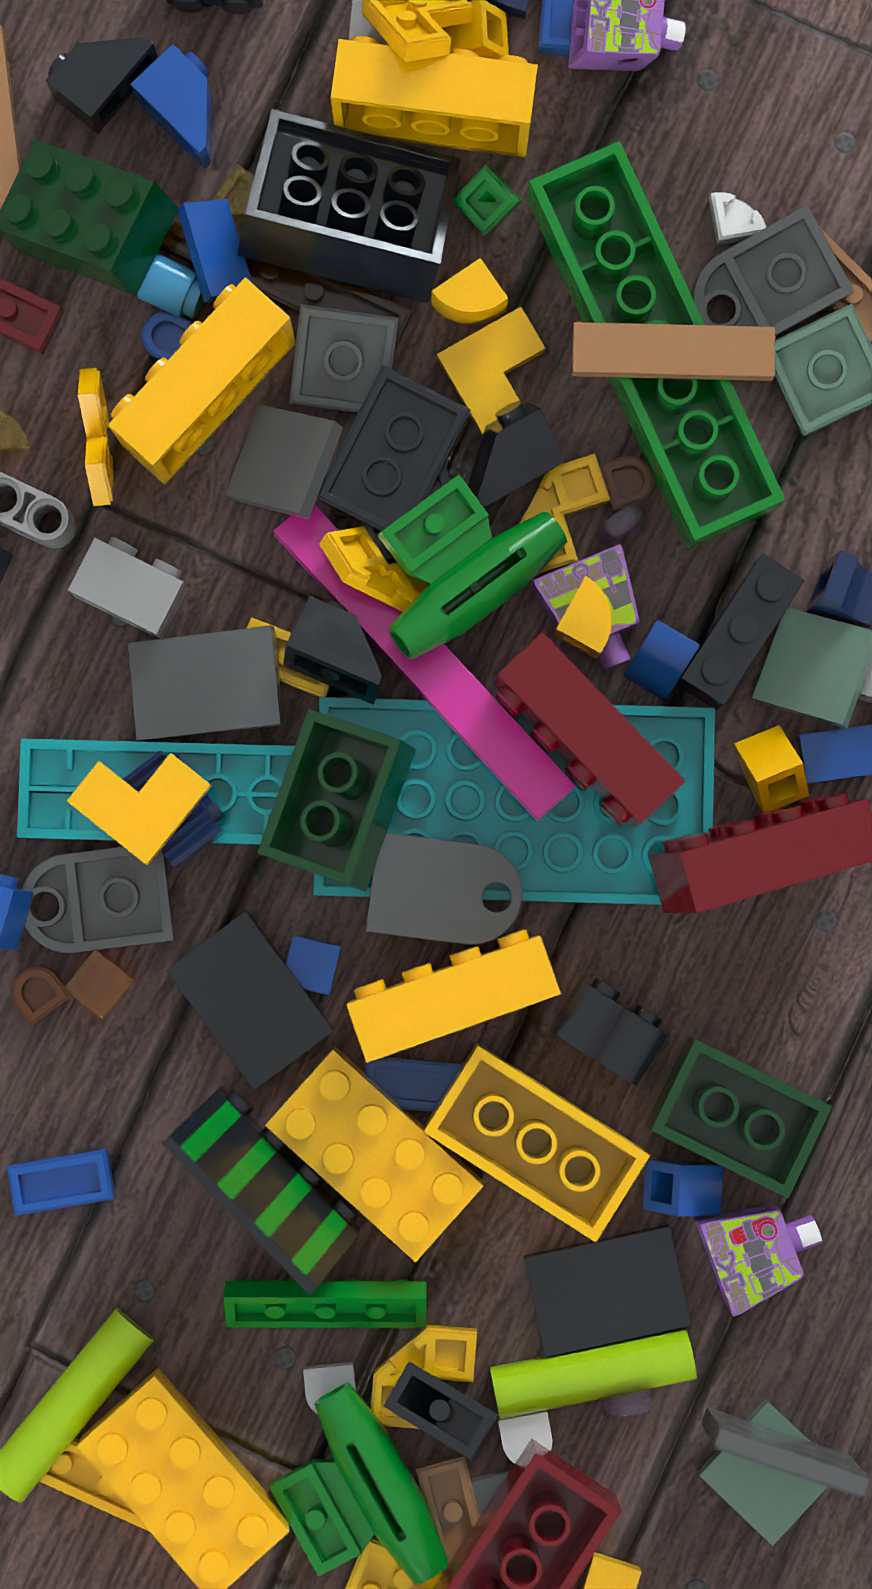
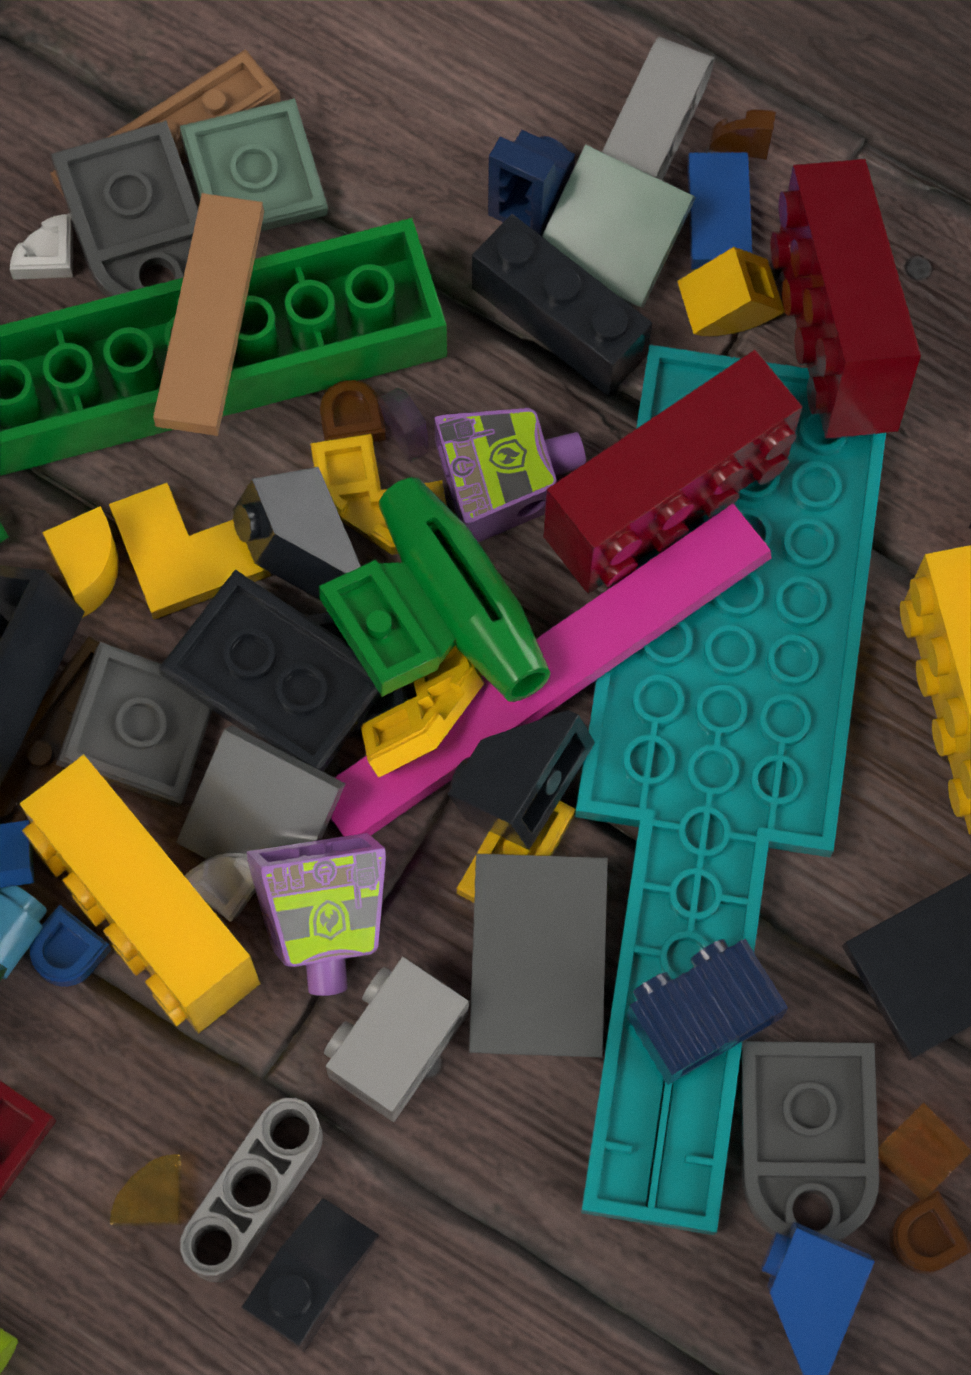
camera: 80 degrees left, 15 degrees down
(95, 419) = (207, 1055): yellow tile -> none
(143, 818) = (721, 1028): yellow tile -> none
(217, 515) = (321, 904): none -> torso
(232, 445) = (224, 883): none -> white tile
(313, 963) = (918, 869): blue tile -> none
(337, 799) = (722, 784): dark green brick -> none
(436, 890) = (843, 693): dark grey tile -> none
(586, 620) = (527, 456): yellow brick -> none
(661, 660) = (580, 398): blue brick -> none

